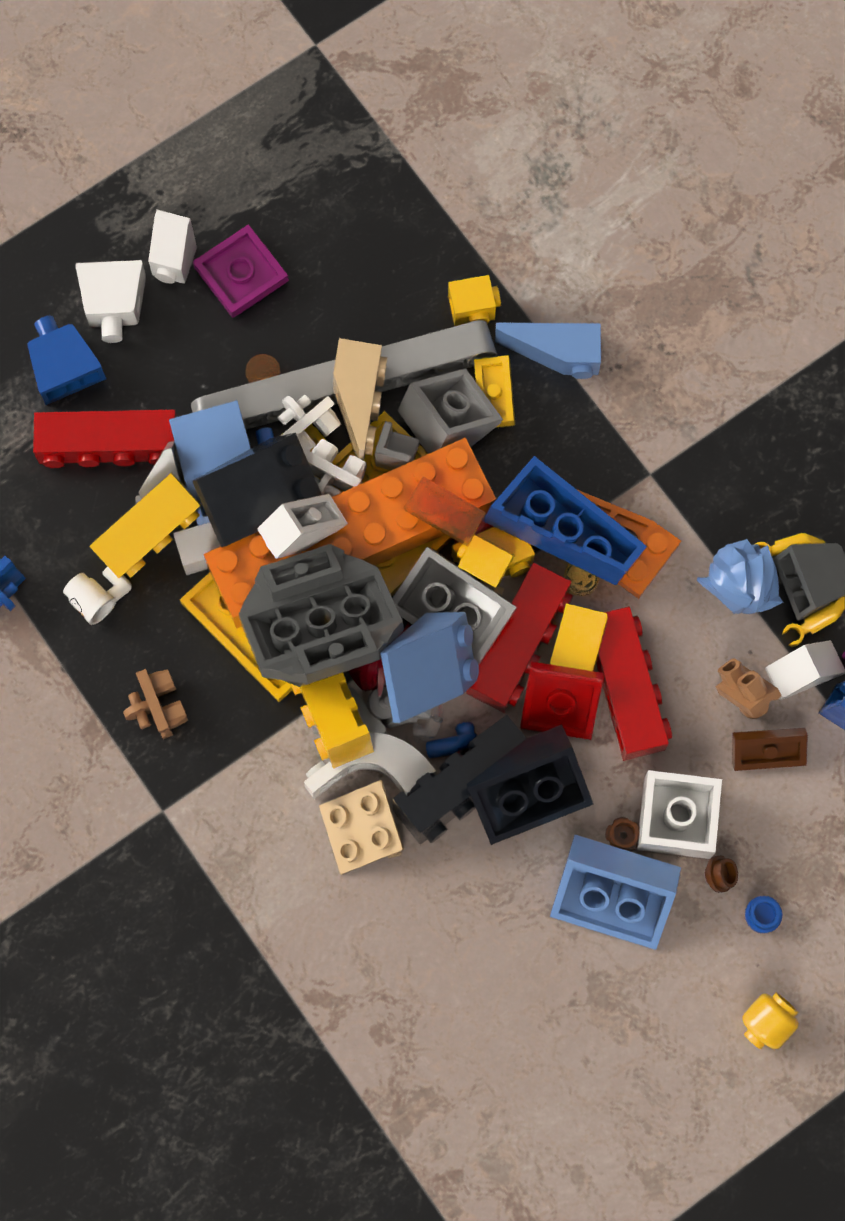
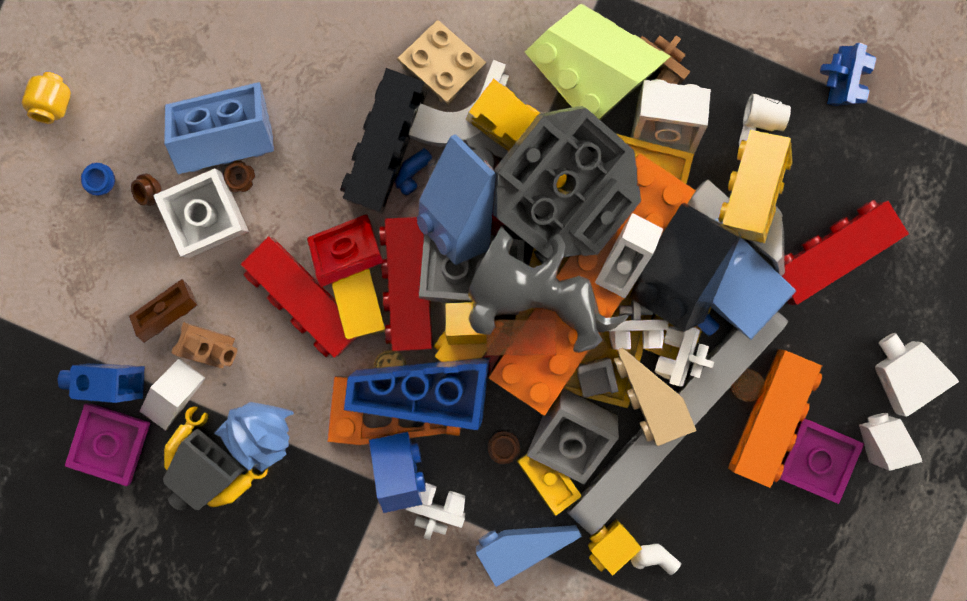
camera: 150 degrees right, 15 degrees up
(62, 361) = (916, 294): blue torso -> none
(178, 643) = (671, 114): none -> white slope
(219, 734) = (593, 60): none -> yellowish green wedge
(257, 327) = (775, 418): none -> orange brick
(424, 555) = (511, 286): none -> dark grey animal
(438, 274) = (653, 555): none -> white arm
(519, 443) = (503, 447): none -> reddish brown plate
(530, 786) = (326, 165): black slope -> none
(619, 418) = (450, 513): none -> white hips
(631, 472) = (396, 472): none -> blue brick

